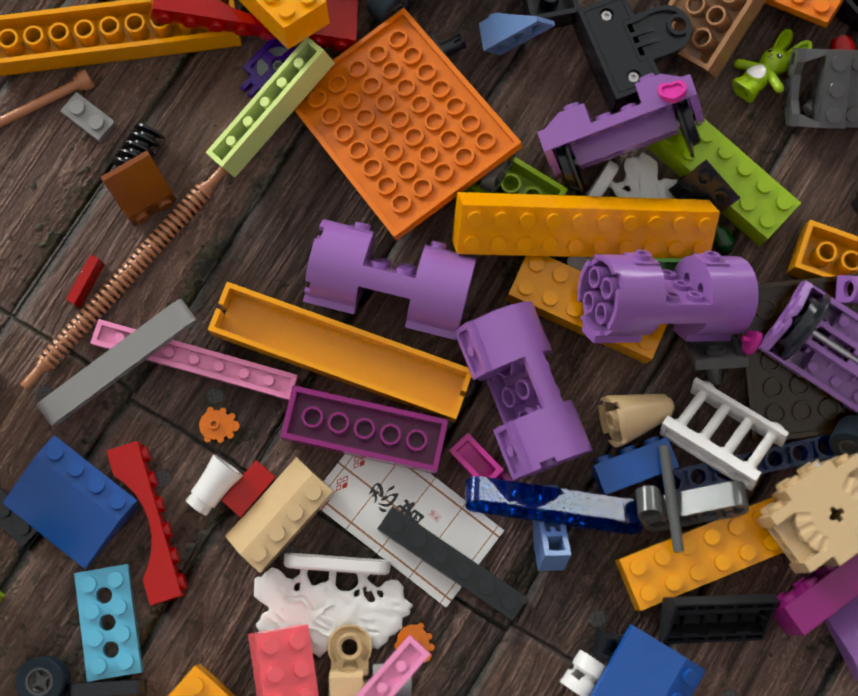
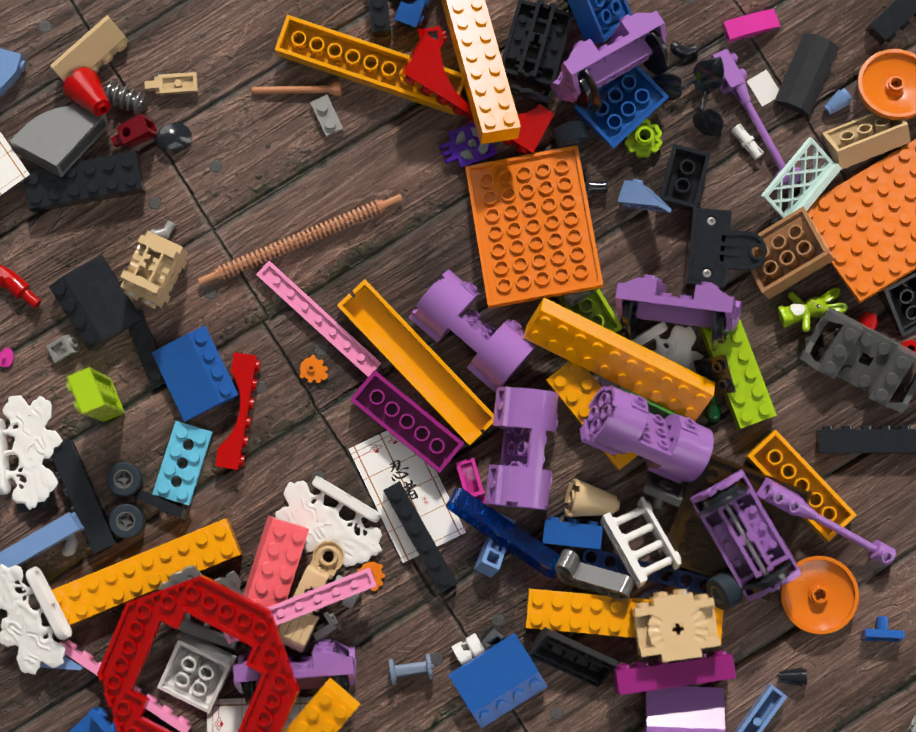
camera: 30 degrees right, 5 degrees up
(85, 281) = (272, 230): red tile -> none
(116, 362) = (267, 297): light grey beam -> none
(139, 188) = (337, 188): dark orange slope -> none
(142, 141) = (348, 157): black piece -> none
(213, 485) = (291, 408): white plant -> none
(248, 488) = (313, 422): red tile -> none
(270, 107) = (451, 173): yellowish green brick -> none
(279, 515) = (325, 449): tan slope -> none
(671, 499) = (582, 567): dark grey bar -> none
(673, 91) = (715, 304): dark pink piece -> none
(751, 341) = (689, 491): dark pink piece -> none

